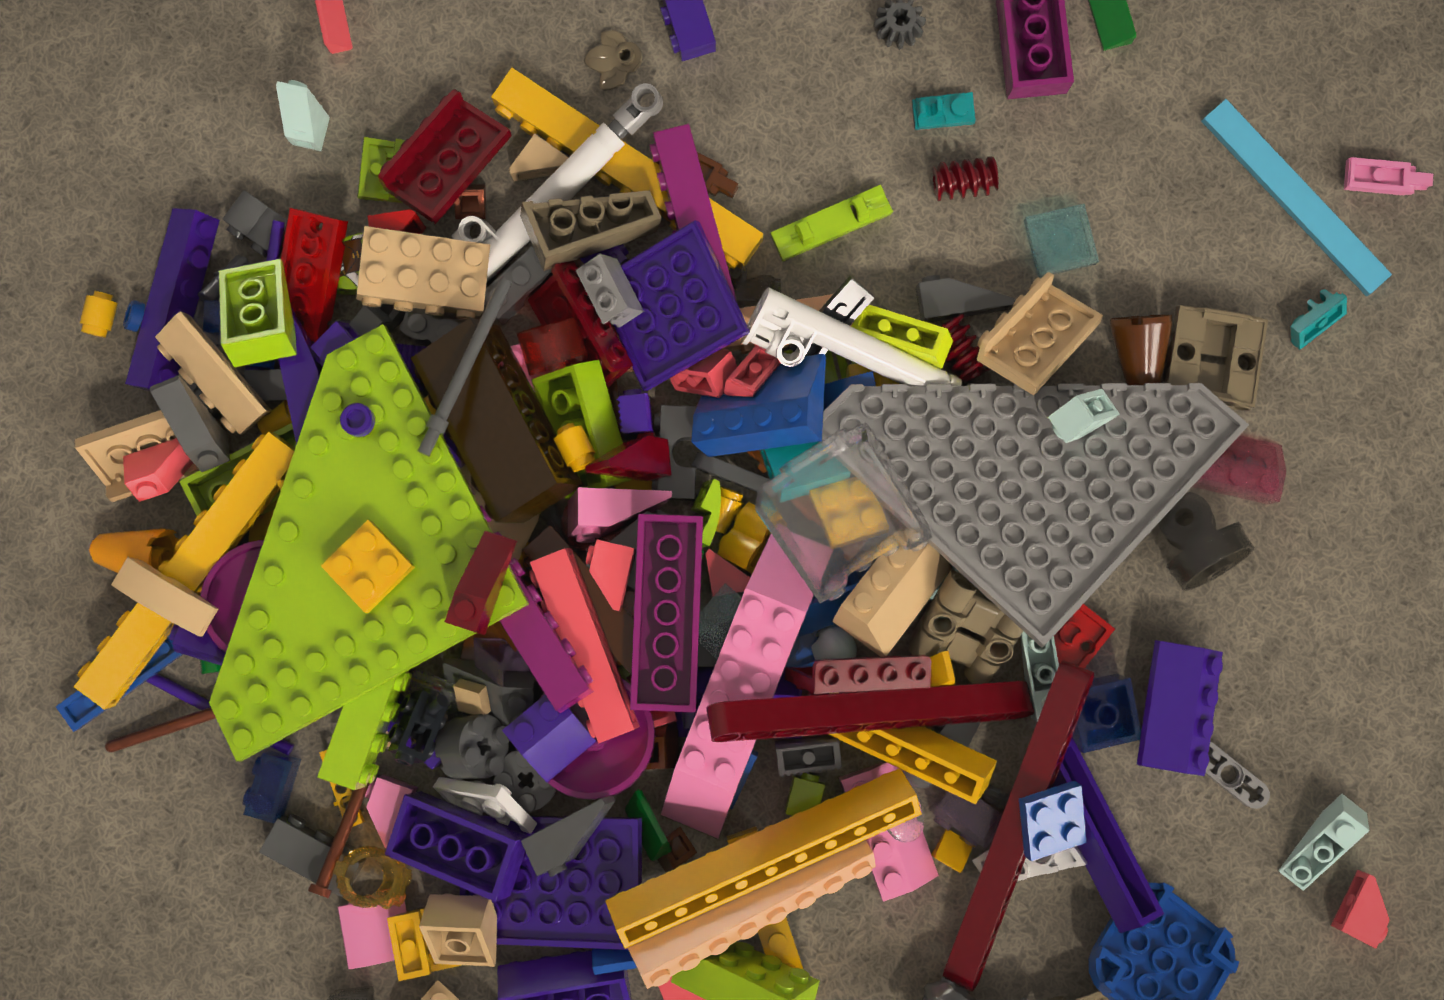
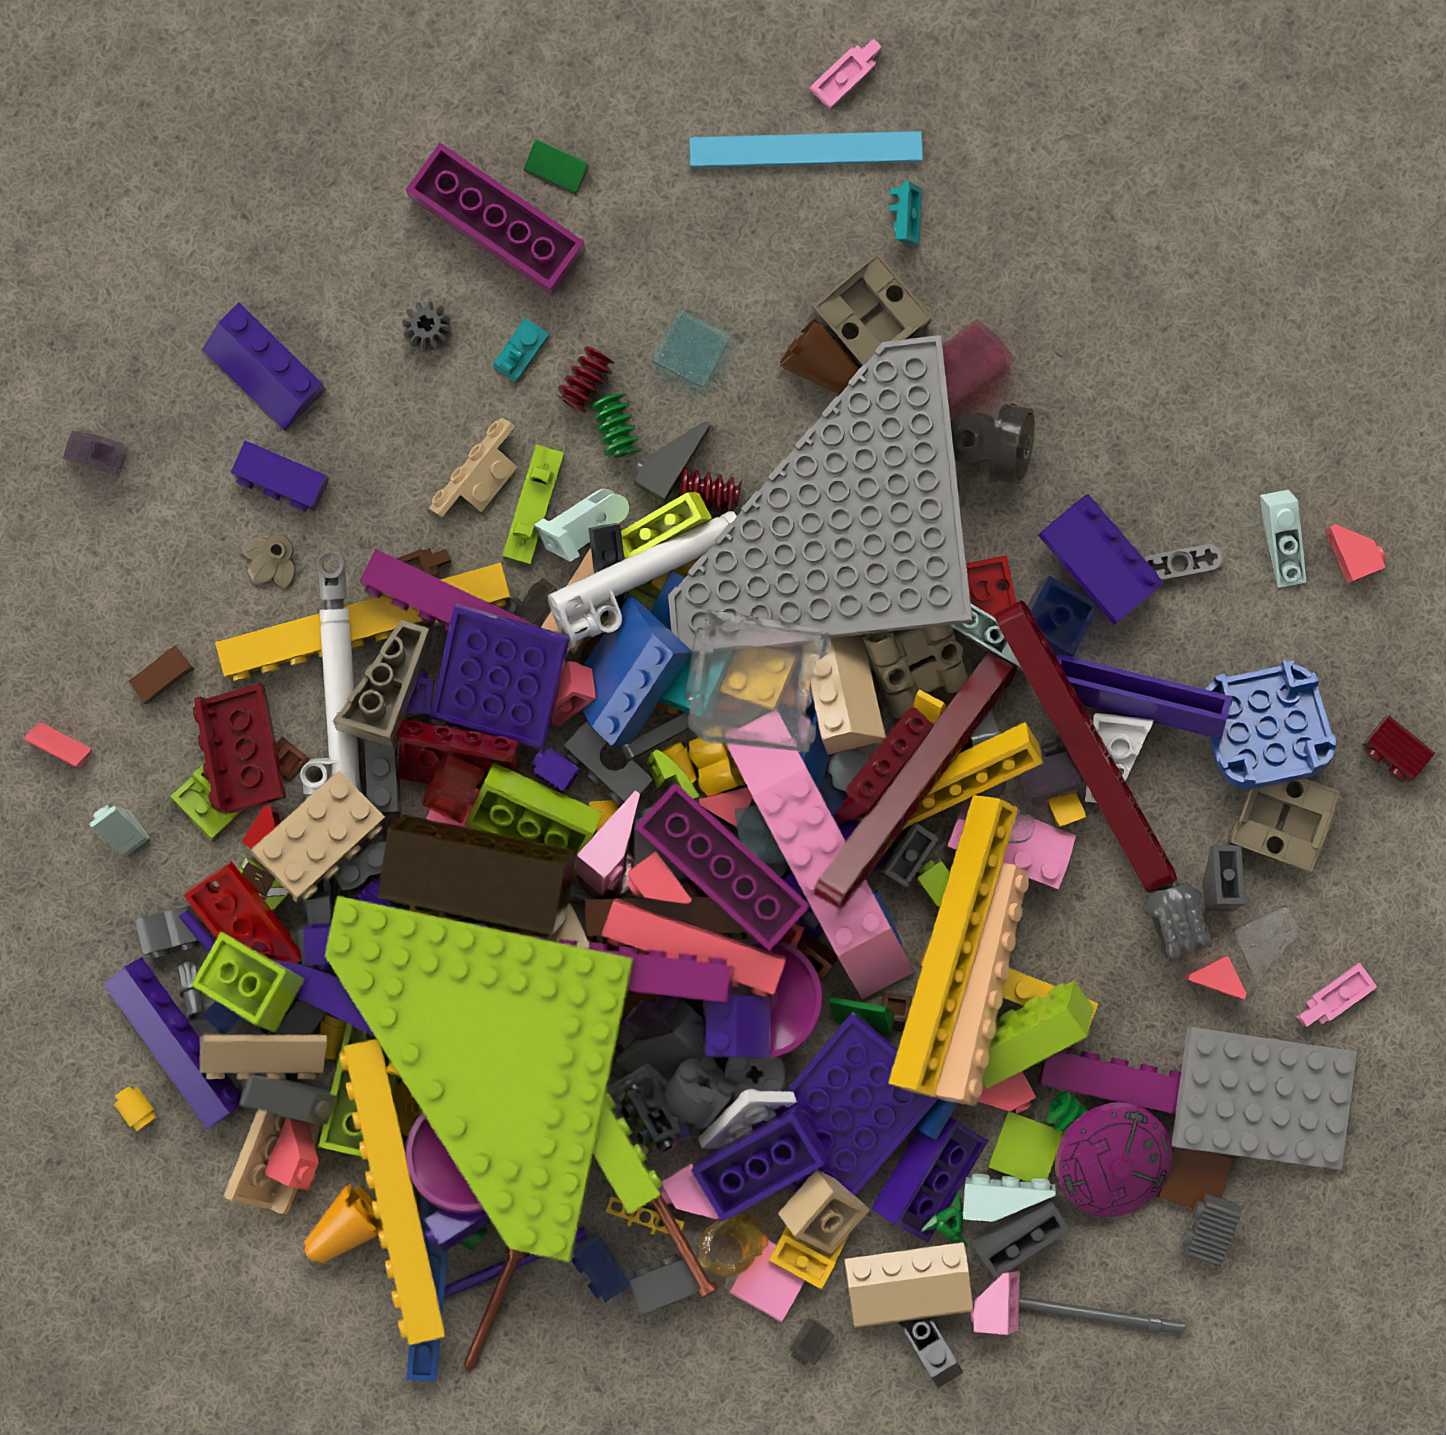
camera: 55 degrees left, 0 degrees up
(134, 315) = (159, 1081): blue tile -> none
(164, 596) = (403, 1219): tan slope -> none
(357, 420) = (395, 971): dark purple tile -> none
(367, 566) = (509, 1051): yellow plate -> none
(438, 423) = (447, 915): dark grey bar -> none
(453, 52) = (160, 675): none -> reddish brown slope
(471, 697) = (662, 1062): tan tile -> none
(481, 583) = (592, 978): dark red slope -> none
(536, 160) = (300, 681): tan slope -> none
(563, 840) = (821, 1081): dark grey slope -> none
(574, 446) = (545, 833): yellow brick -> none
(609, 290) = (450, 711): light grey hinge -> none
(636, 459) = (591, 794): dark red slope -> none
(751, 373) = (598, 660): coral slope -> none
(820, 162) = (480, 475): none -> tan bracket
(834, 265) = (570, 529): none -> light aqua piece
(947, 231) = (615, 426): none -> green piece
(1037, 335) = (746, 428): tan bracket -> none
(1052, 820) = (1101, 718): plate -> none
(1082, 415) = (833, 449): light aqua slope -> none

